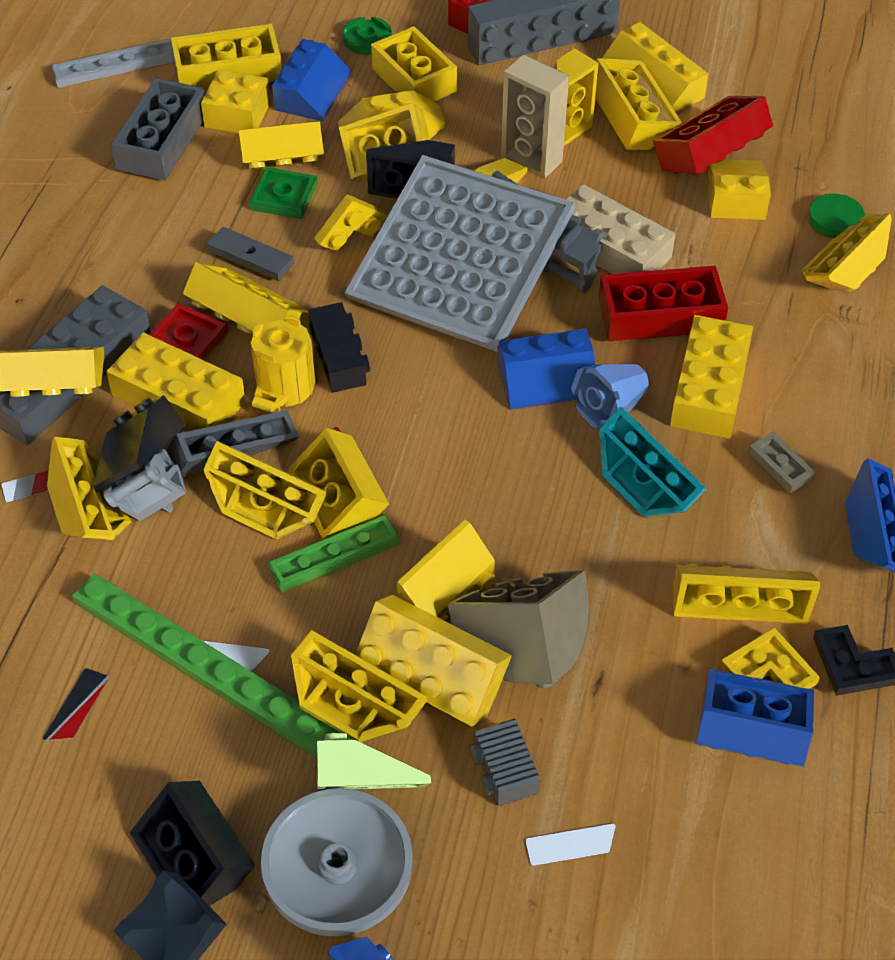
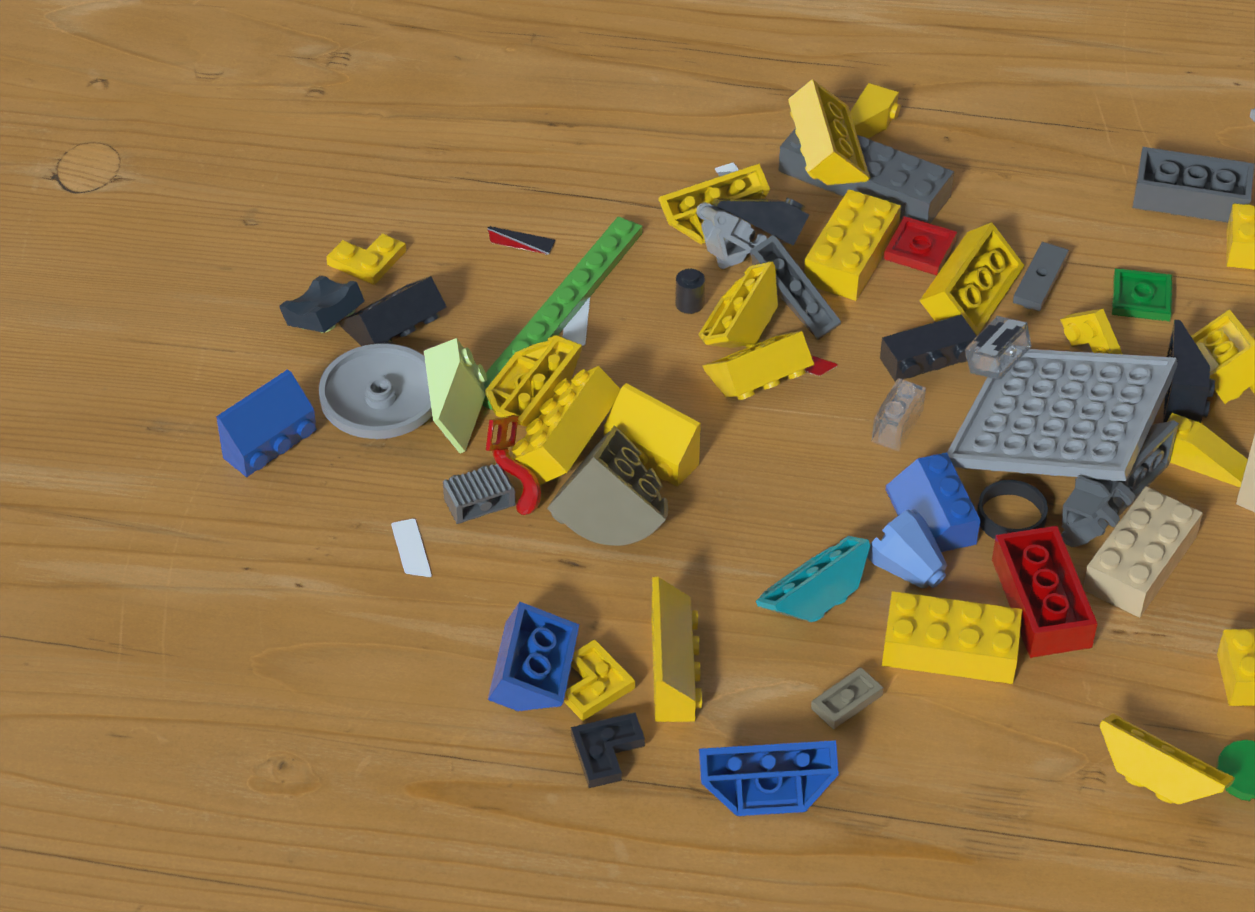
camera: 85 degrees right, 5 degrees down
(82, 882) = (367, 264): none -> yellow plate
(218, 533) = (690, 291): none -> black brick
(281, 144) = (1206, 278): yellow slope -> none
(282, 364) = (882, 300): yellow container -> none
(333, 553) = (688, 374): bright green tile -> none
(358, 288) = (998, 347): none -> clear brick
(428, 379) = (898, 414): none -> clear brick
(477, 721) = (531, 493): none -> red piece
(551, 296) = (1010, 487): none -> black tyre

